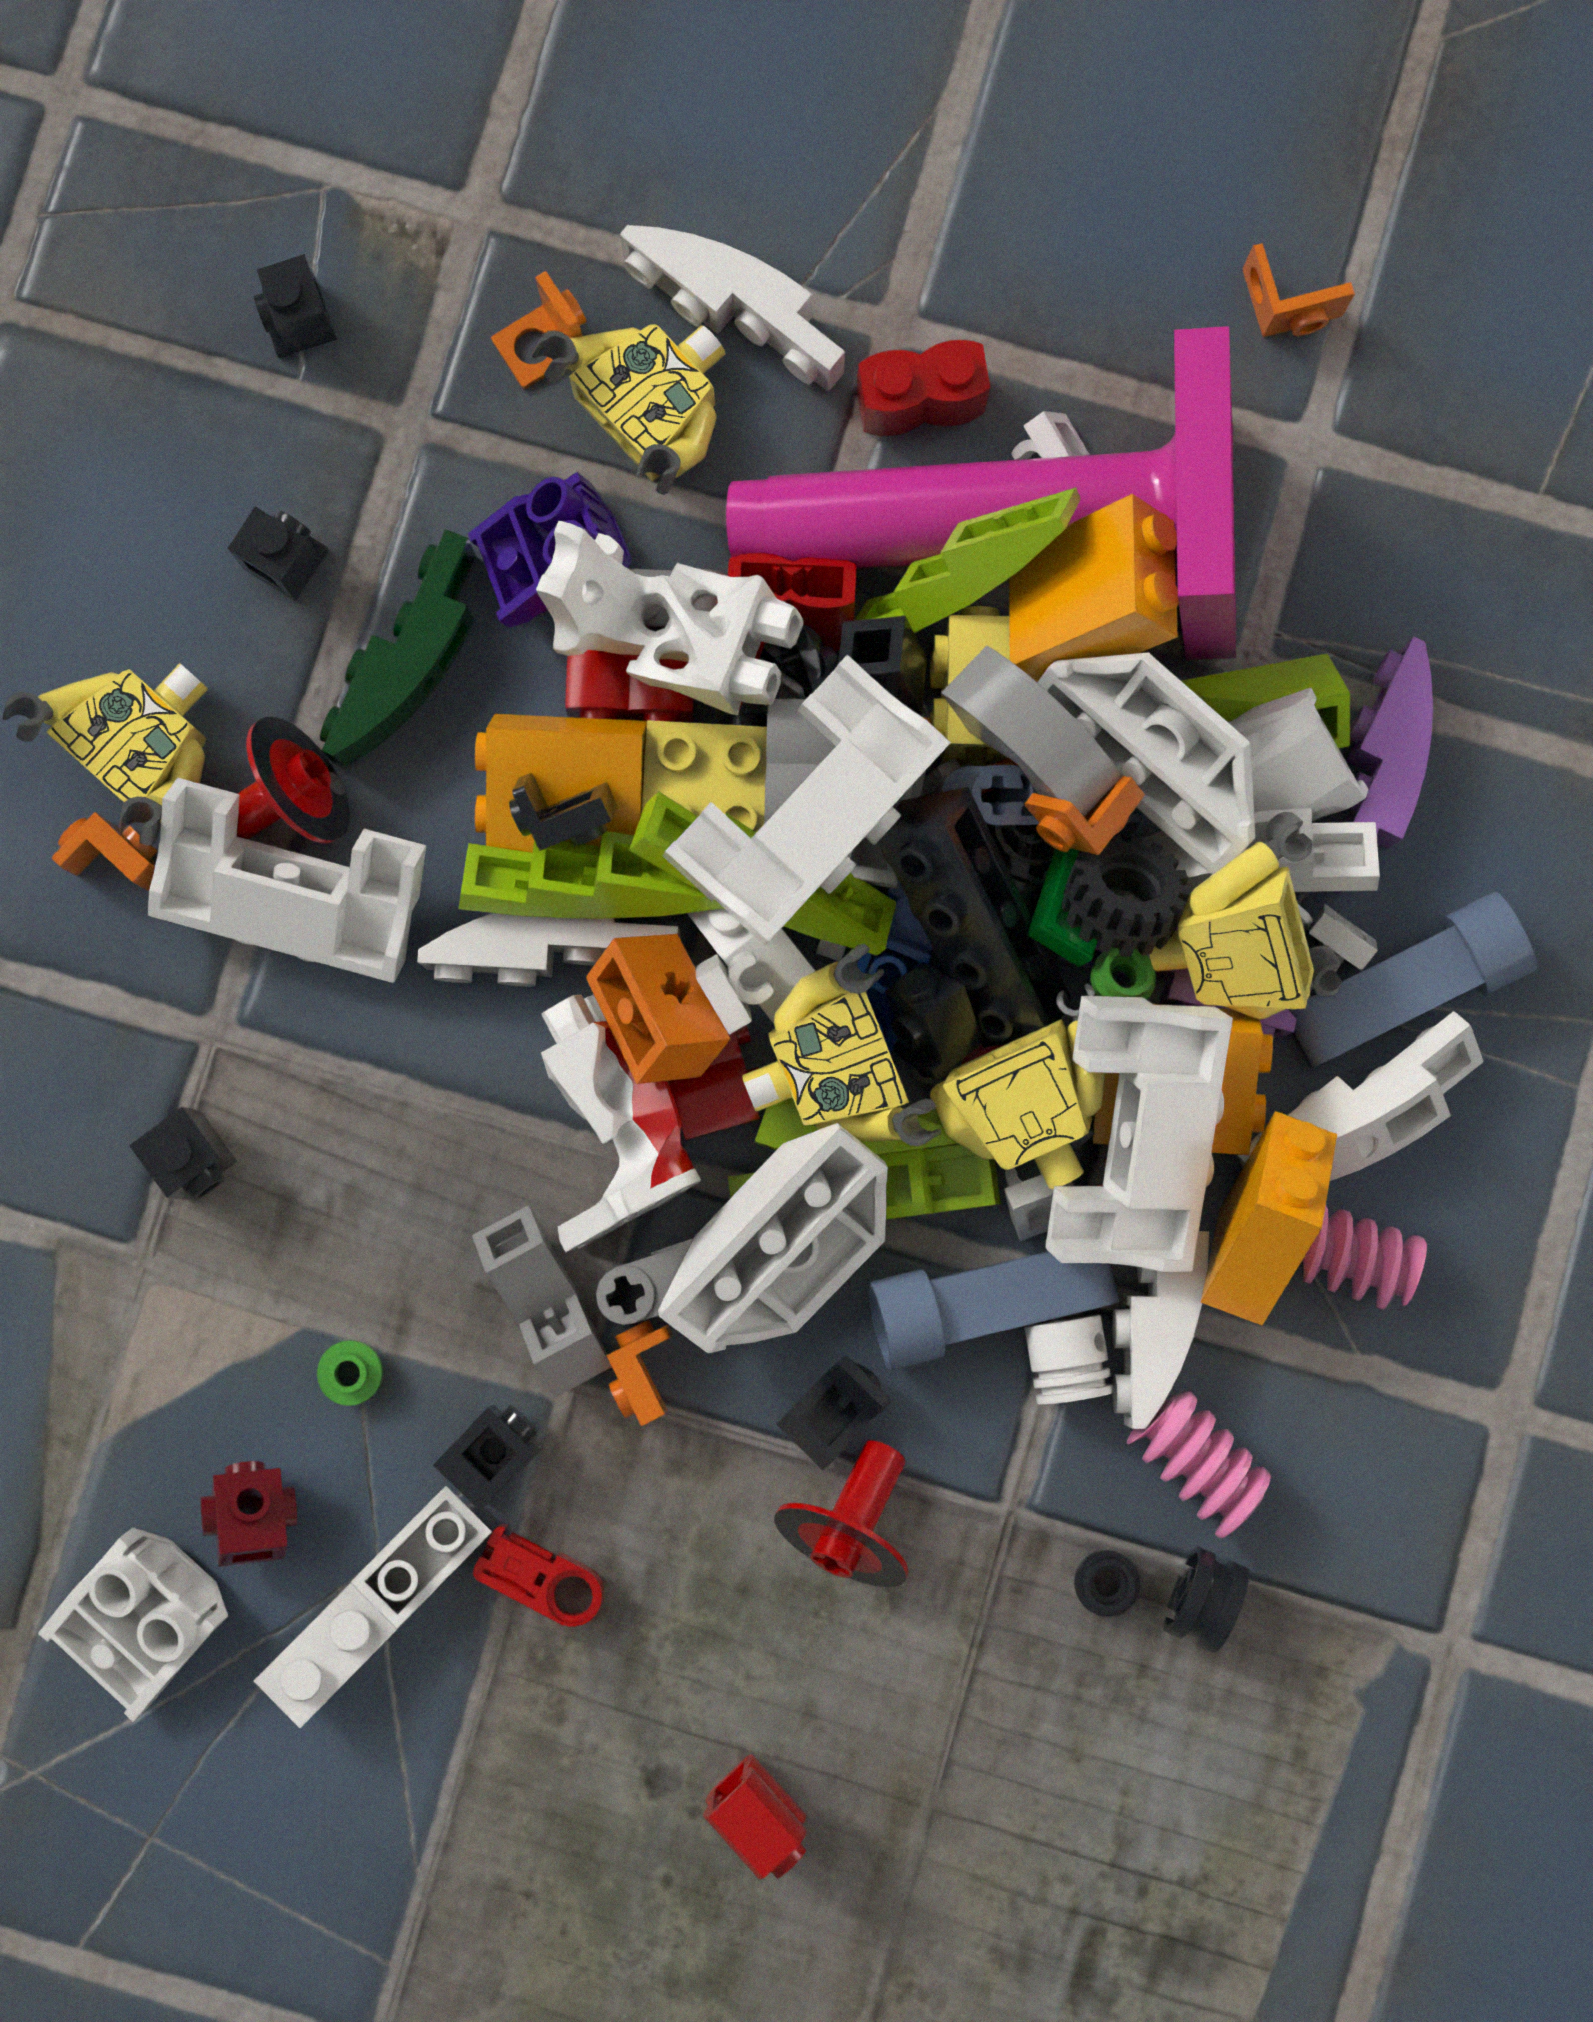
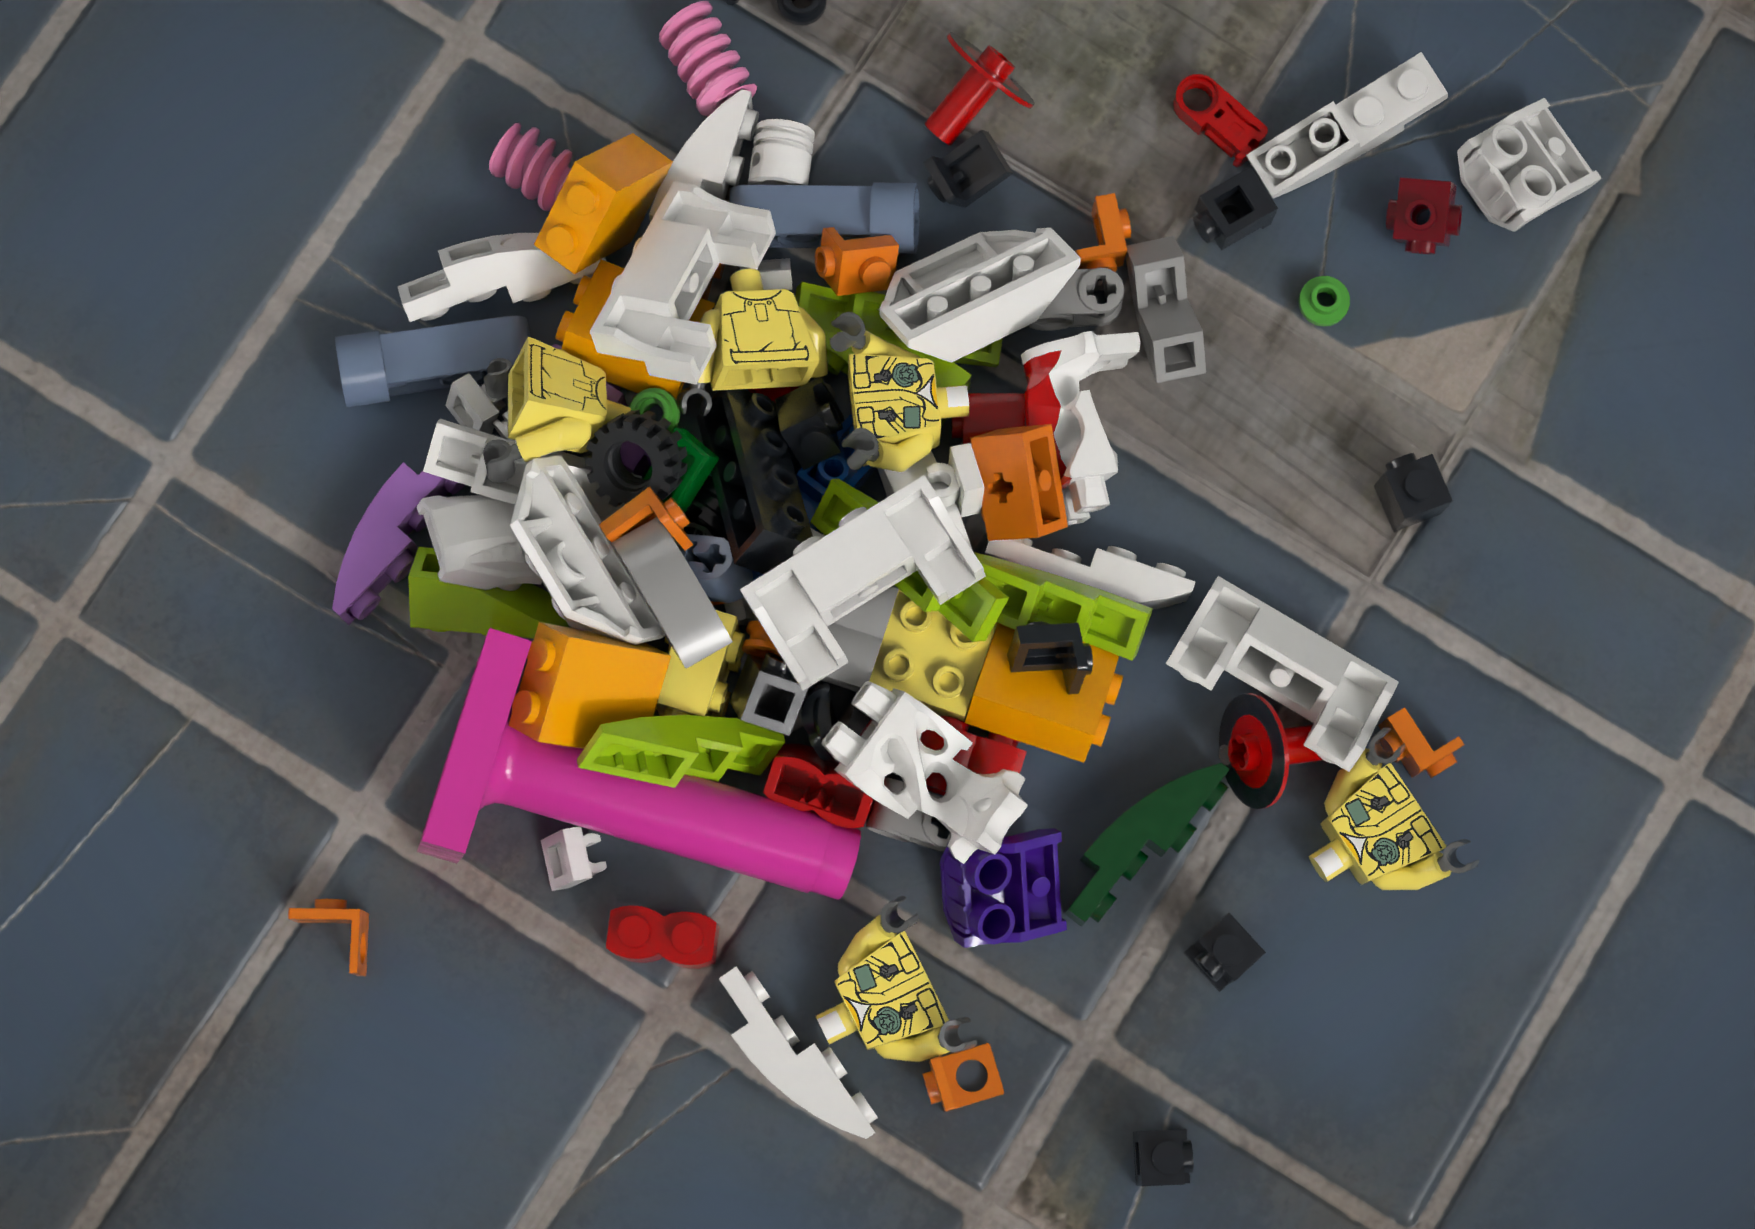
camera: 165 degrees left, 5 degrees down
(933, 1236) = (856, 264): none -> orange bracket

